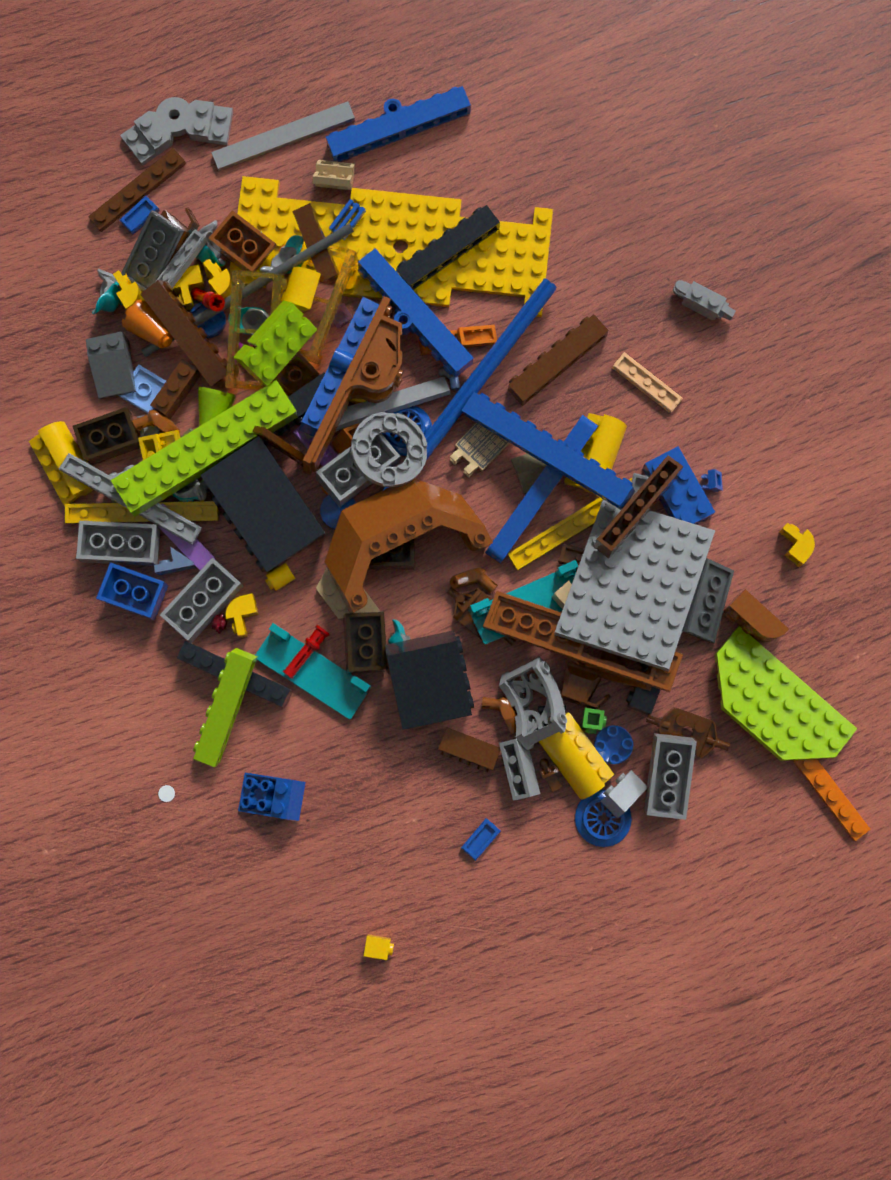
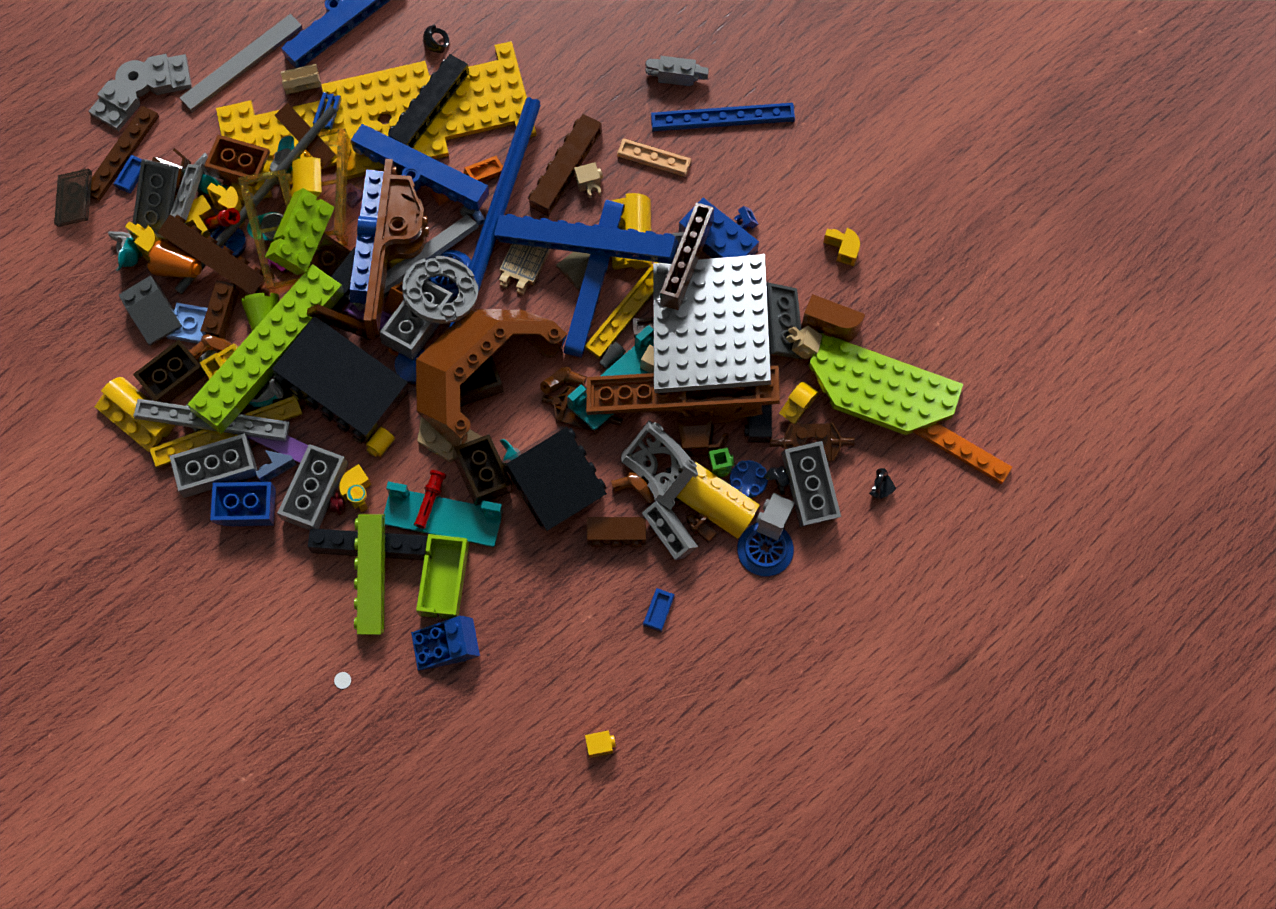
camera: 20 degrees left, 10 degrees down
(76, 221) = (73, 197): none -> clear smoke tile
(239, 623) = (356, 494): none -> yellow tile
(291, 733) = (442, 576): none -> lime piece
(472, 180) = (430, 43): none -> black piece
(530, 572) = (612, 355): none -> dark grey cone
(575, 382) = (588, 178): none -> tan brick
(642, 754) = (780, 475): none -> black piece
(691, 688) = (798, 401): none -> yellow brick
(720, 630) = (805, 341): none -> tan brick
(731, 364) = (722, 116): none -> blue tile
(739, 800) = (883, 484): none -> black piece

